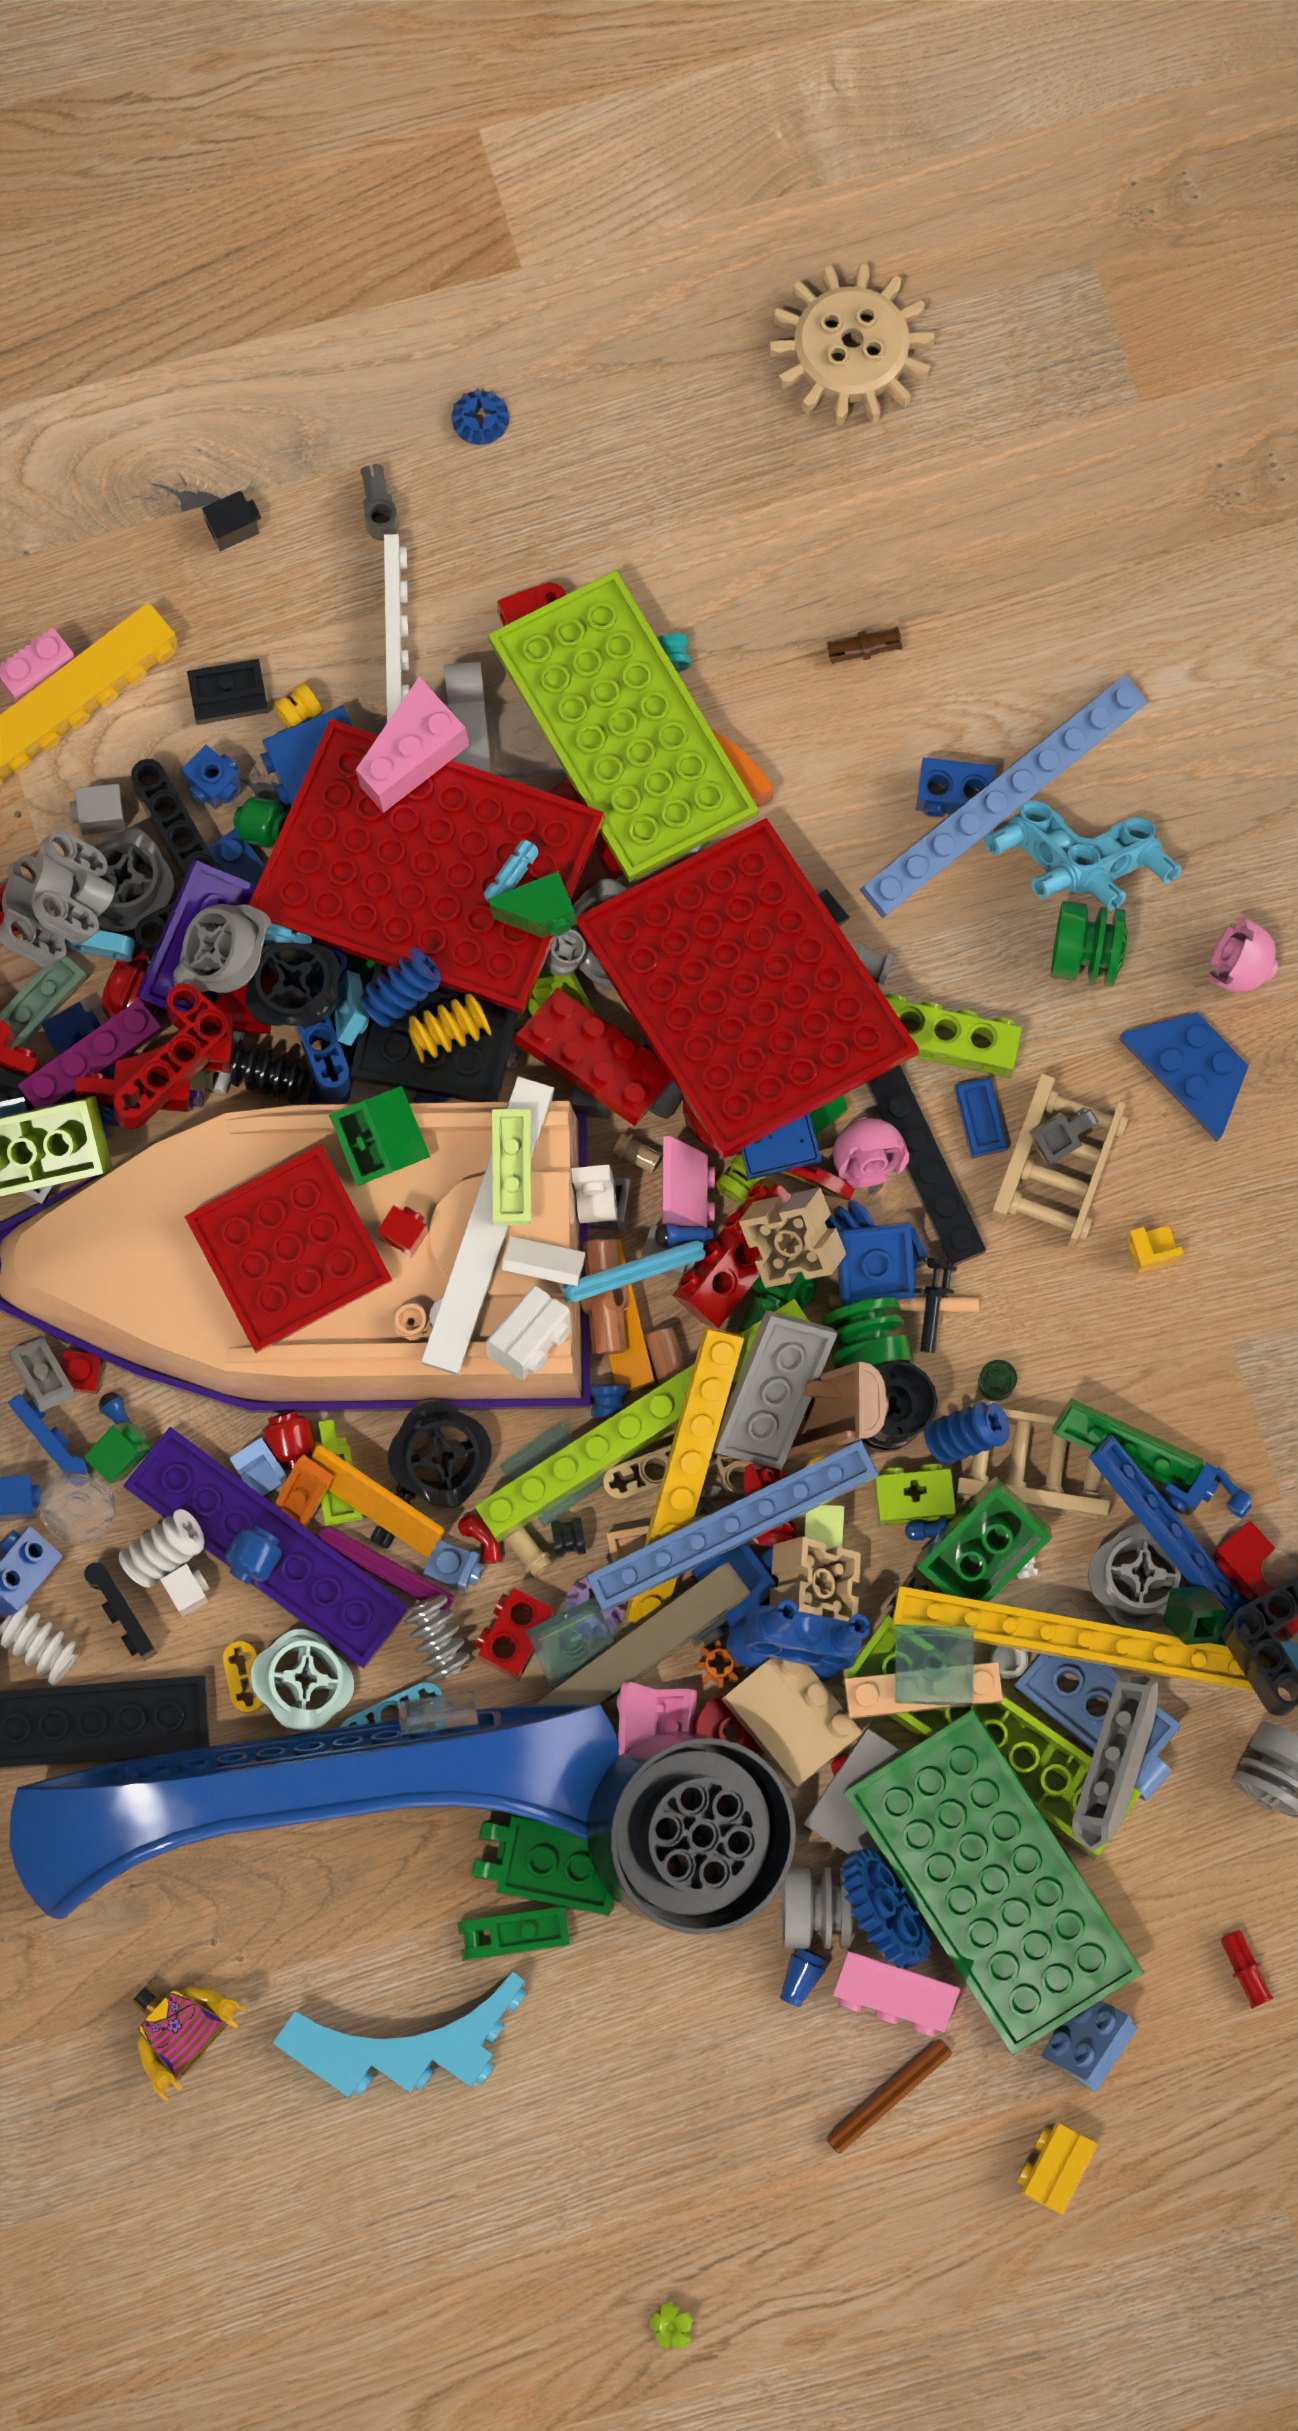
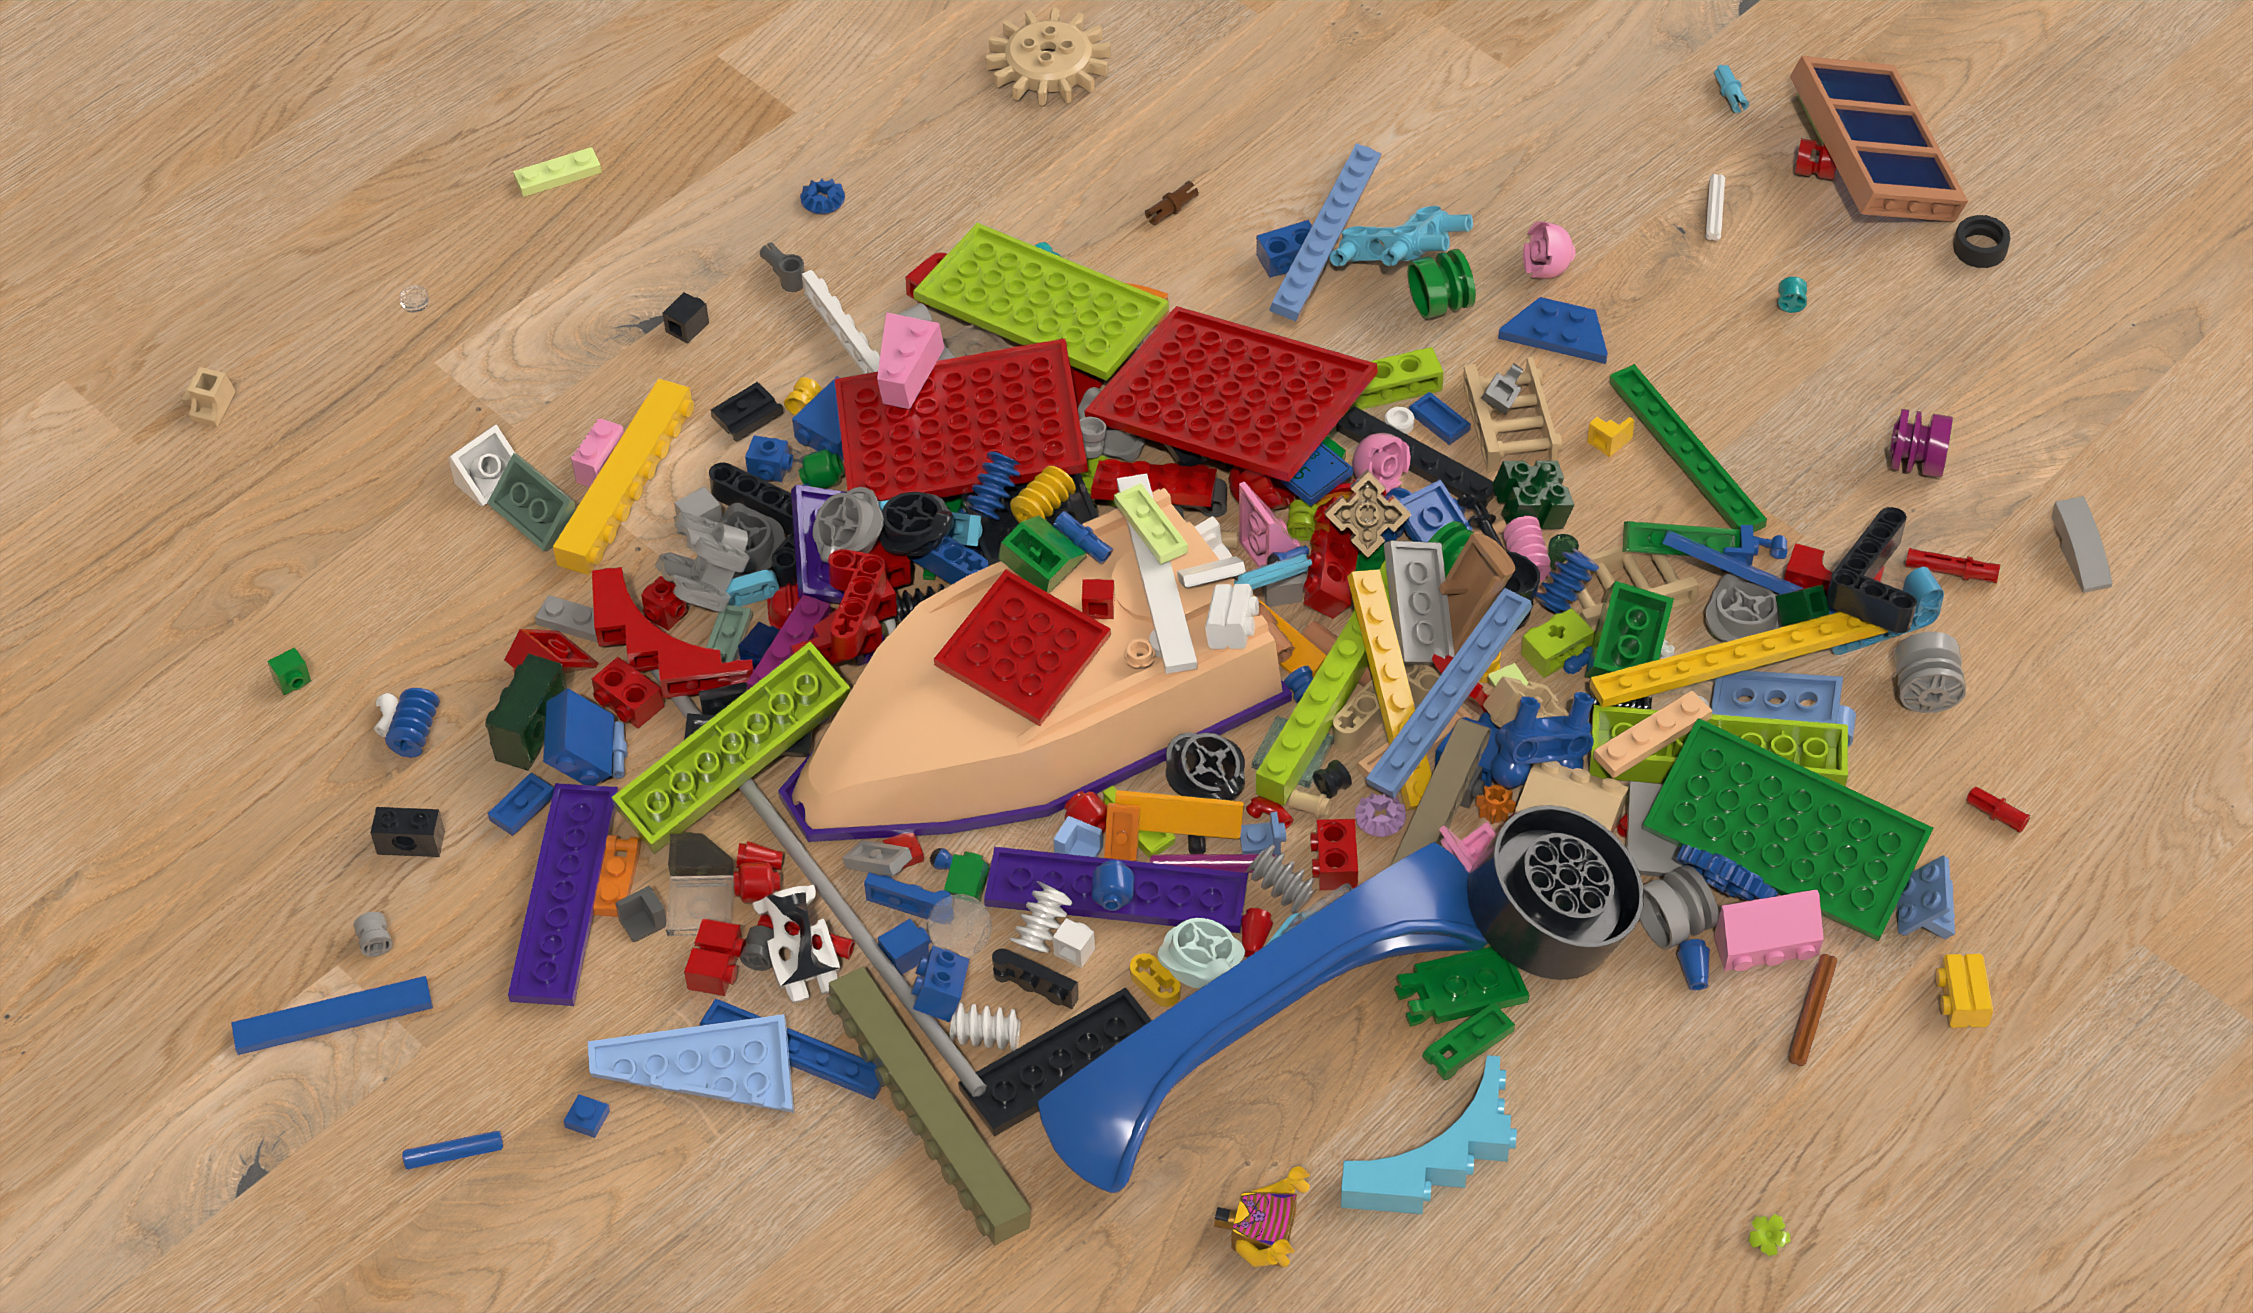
camera: 25 degrees left, 25 degrees down
(204, 217) = (557, 172): none -> yellowish green plate
(377, 1679) = (1255, 929): none -> red cone
(437, 1135) = (1083, 537): none -> blue pin
(513, 869) = (1025, 394): medium azure axle -> none
(536, 907) = (1057, 399): green slope -> none
(570, 1641) = (1379, 831): clear light blue plate -> none
(934, 1097) = (1400, 418): none -> white tile
(934, 1665) = (1651, 706): clear light blue plate -> none
(956, 1356) = (1526, 539): none -> bright pink piece
(1007, 1291) = (1533, 492): none -> dark green brick
(1116, 1760) = (1818, 706): light grey brick -> none
(1223, 1318) = (1686, 449): none -> green plate

